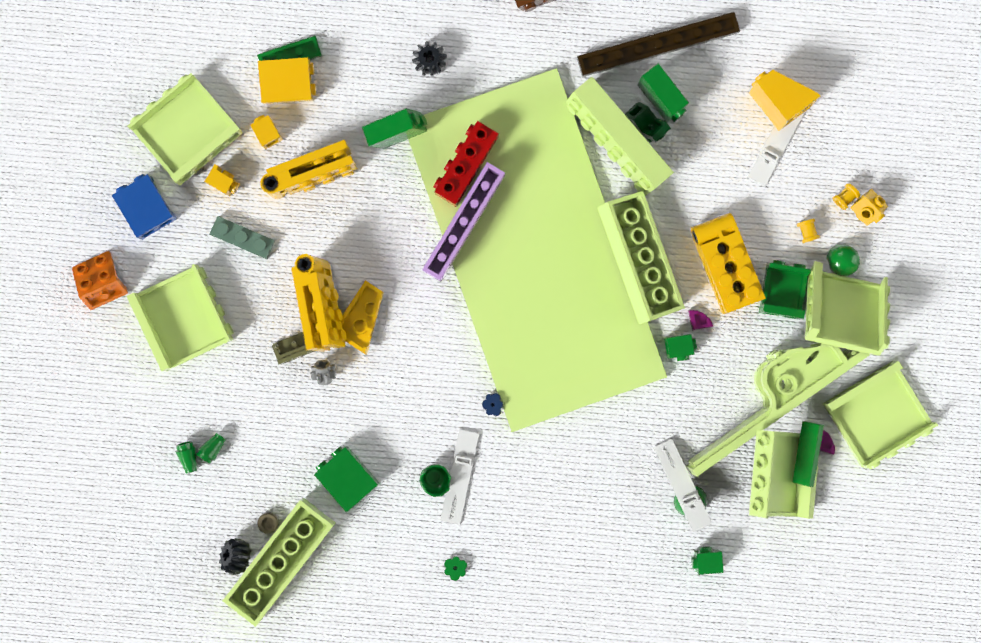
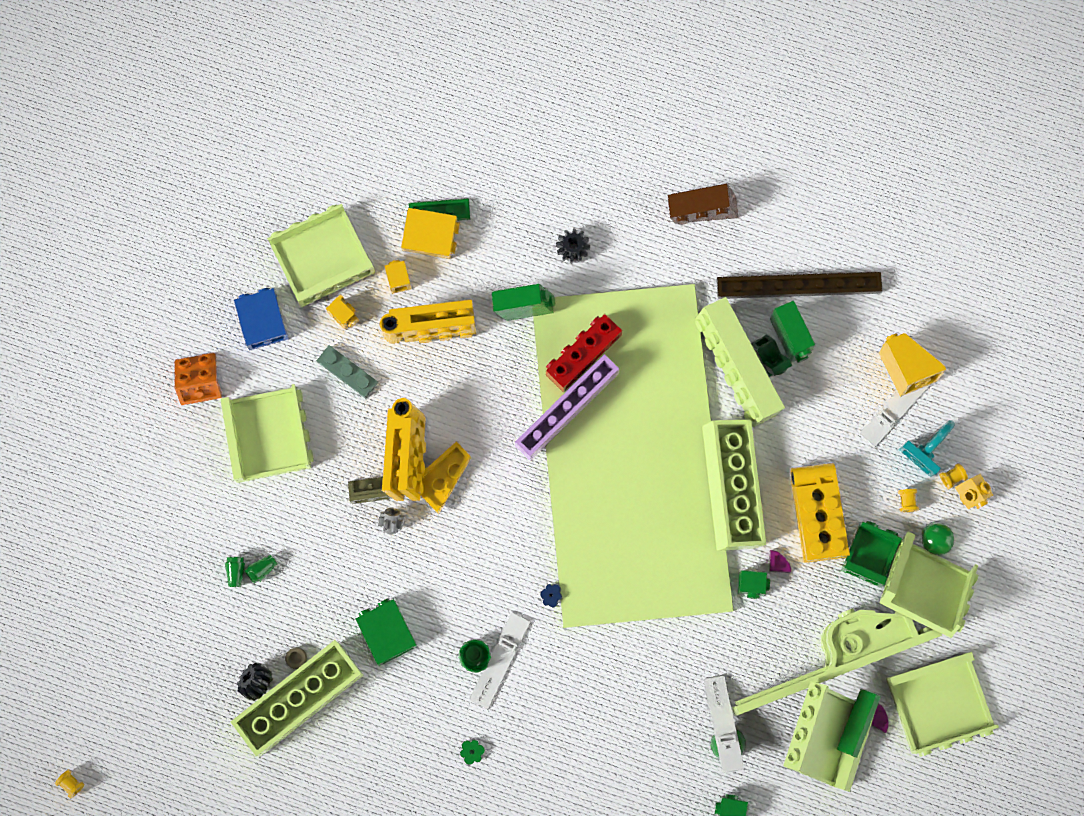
camera: 20 degrees right, 10 degrees down
(814, 183) = (923, 455): none -> teal tile

